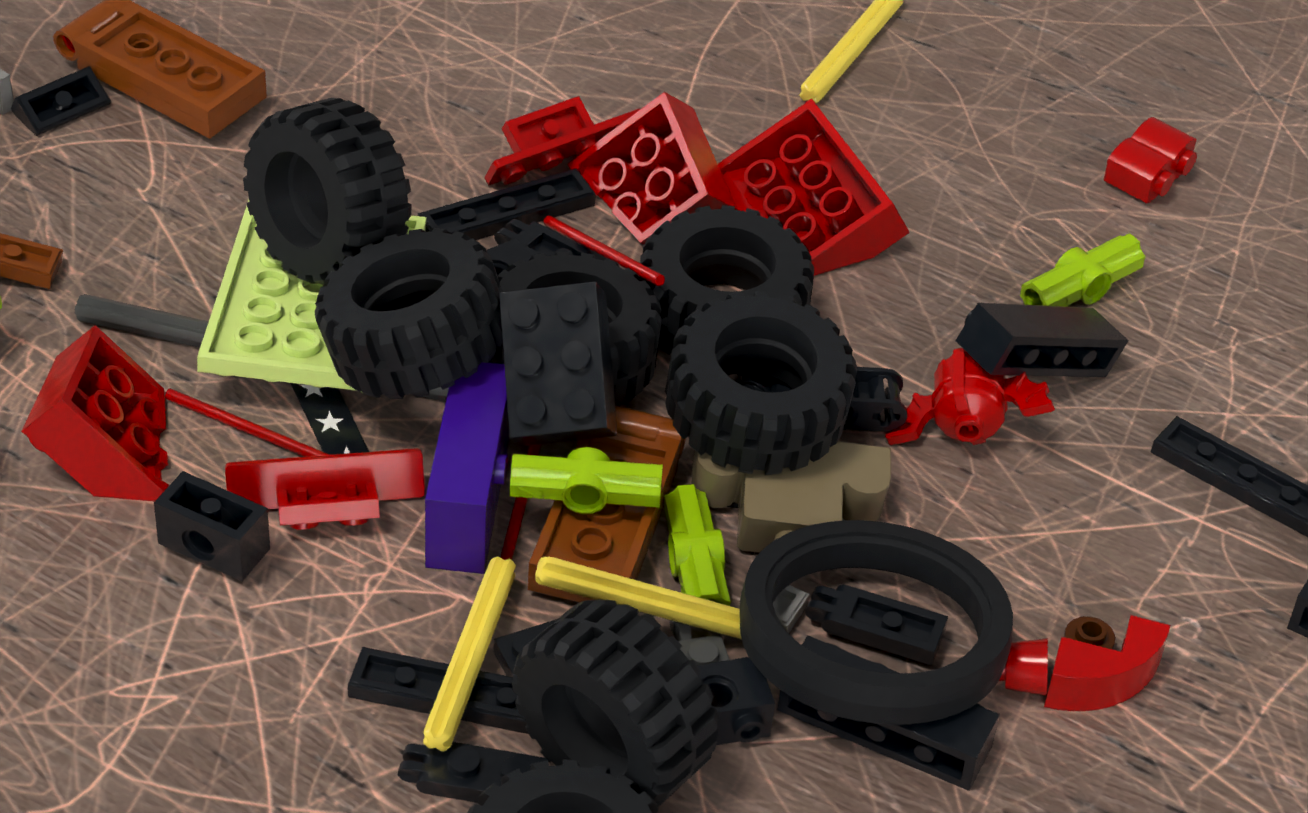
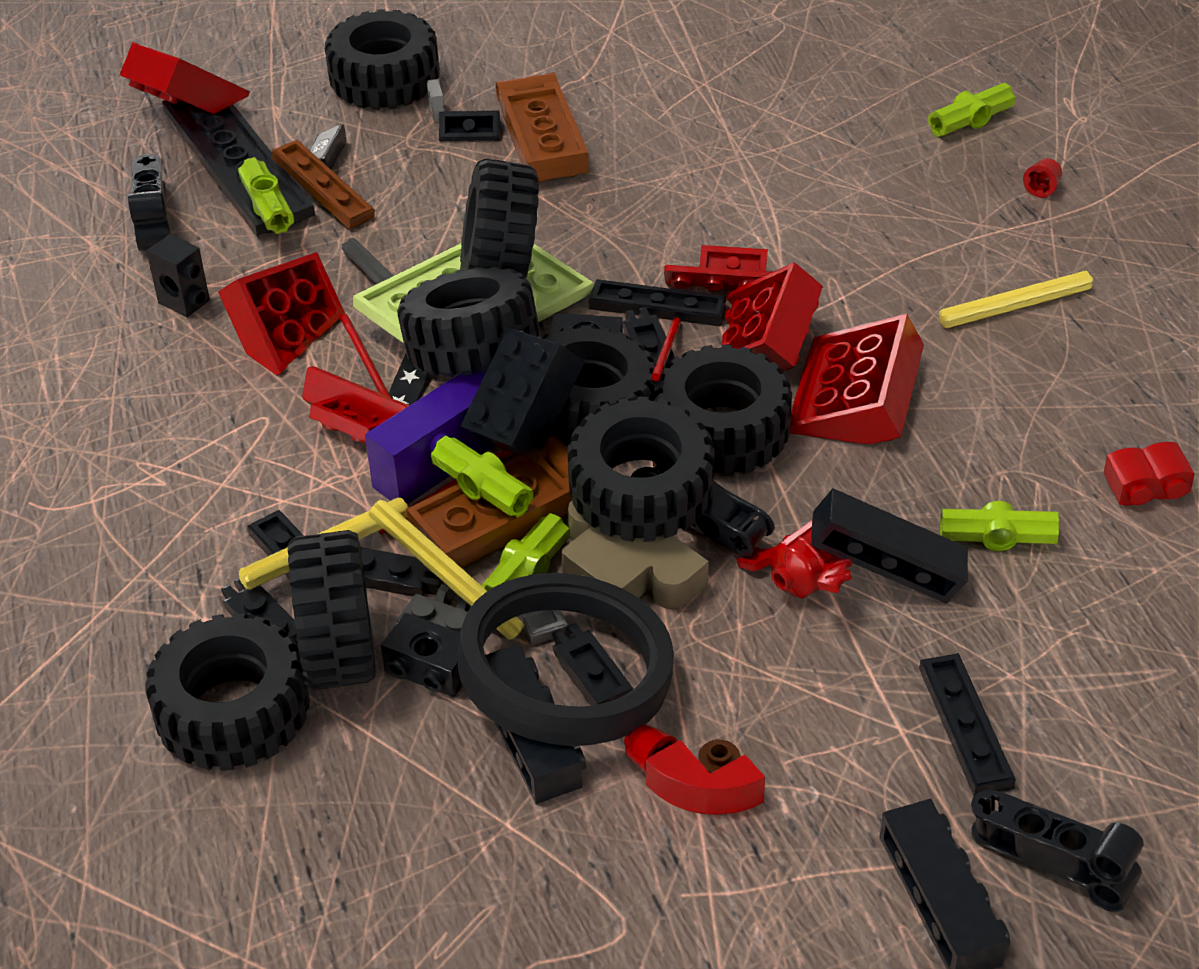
camera: 45 degrees right, 0 degrees up
(212, 525) = (267, 397): black brick -> none

